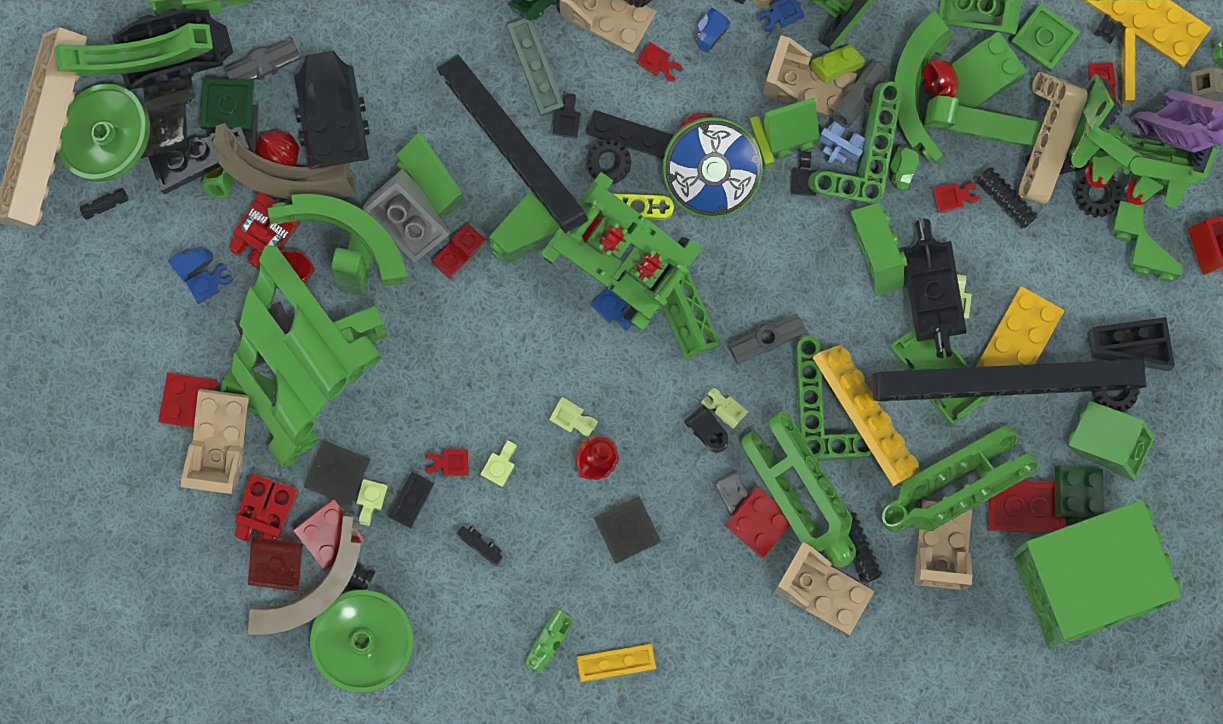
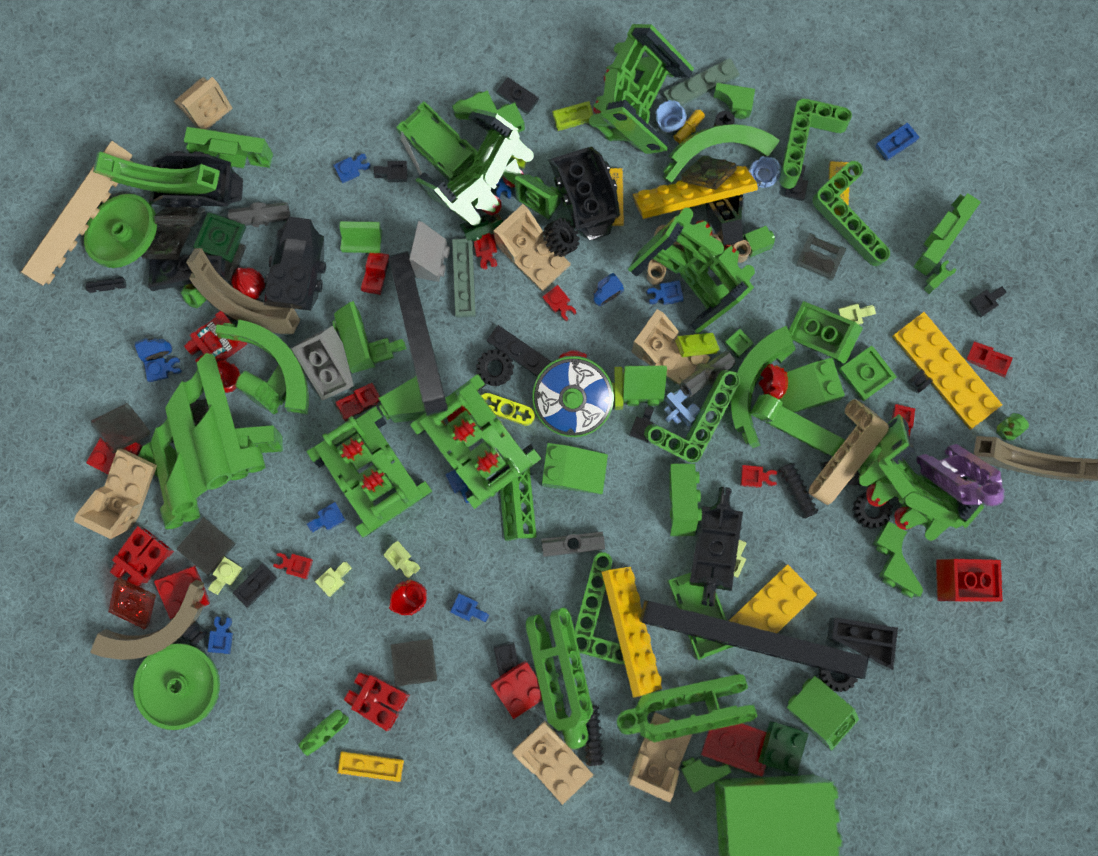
camera: 25 degrees right, 0 degrees up
(187, 366) = (120, 427): none -> clear smoke plate
(392, 574) = (220, 640): none -> blue plate
(395, 54) = (360, 237): none -> bright green panel
(426, 92) = (375, 273): none -> red slope
(469, 179) = (383, 349): none -> bright green plate
(470, 396) = (329, 517): none -> blue plate
(472, 538) = (291, 631): black plate -> none
(488, 50) = (428, 253): none -> light grey slope
(488, 296) = (347, 454): none -> bright green container
(550, 24) = (485, 248): none -> red plate
(566, 120) = (474, 327): black plate -> none
(591, 585) = (370, 698): none -> red hips
(667, 450) = (466, 608): none -> blue plate
(705, 426) = (501, 598): black piece -> none
(727, 409) = (524, 591): yellowish green plate -> none
(740, 252) = (574, 469): none -> bright green slope
(885, 47) = (738, 343): none -> bright green plate
(903, 167) = (724, 441): bright green rock -> none
(993, 551) = (701, 775): none -> bright green arch
(1128, 66) = (927, 416): yellow tile -> none

